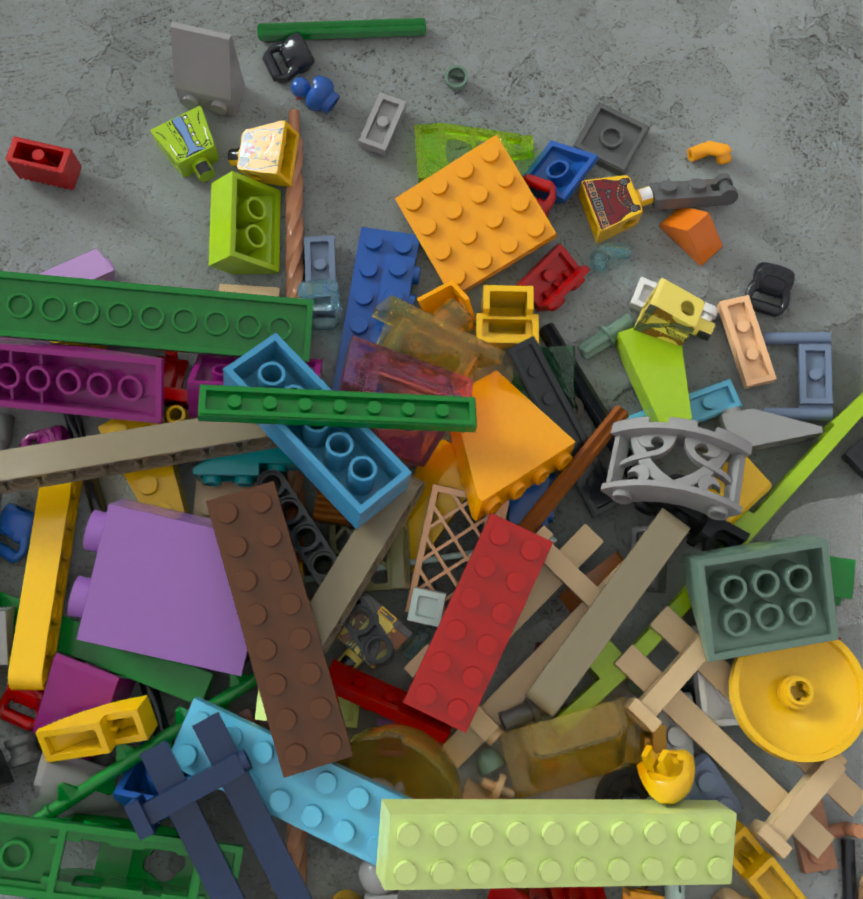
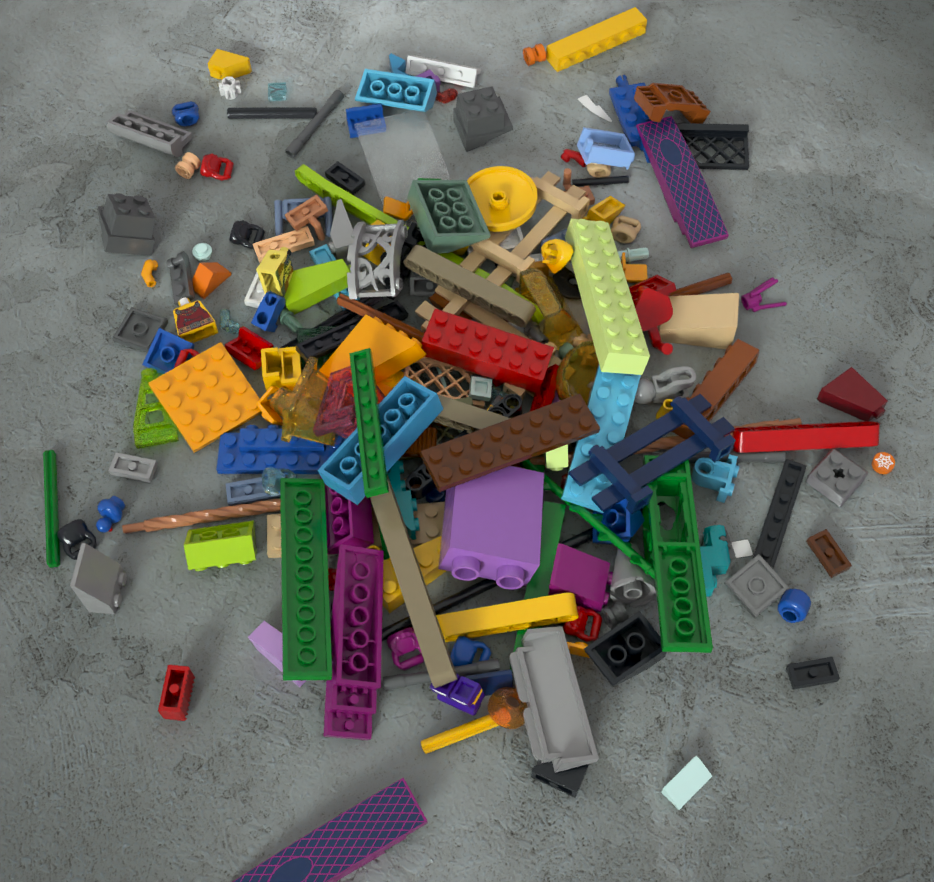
camera: 95 degrees left, 15 degrees down
(98, 729) = (593, 550): yellow slope -> none
(188, 144) = (155, 593): lime torso -> none
(267, 153) = (164, 536): yellow torso -> none
(458, 73) = (90, 423): sand green hinge -> none
(613, 308) = (269, 311): none -> blue leg
(743, 225) = (202, 252): none -> light aqua plate
(789, 115) = (127, 225): none -> dark grey piece
(796, 376) = (308, 213): none -> nougat plate
(801, 517) = (397, 209): none -> light orange bracket

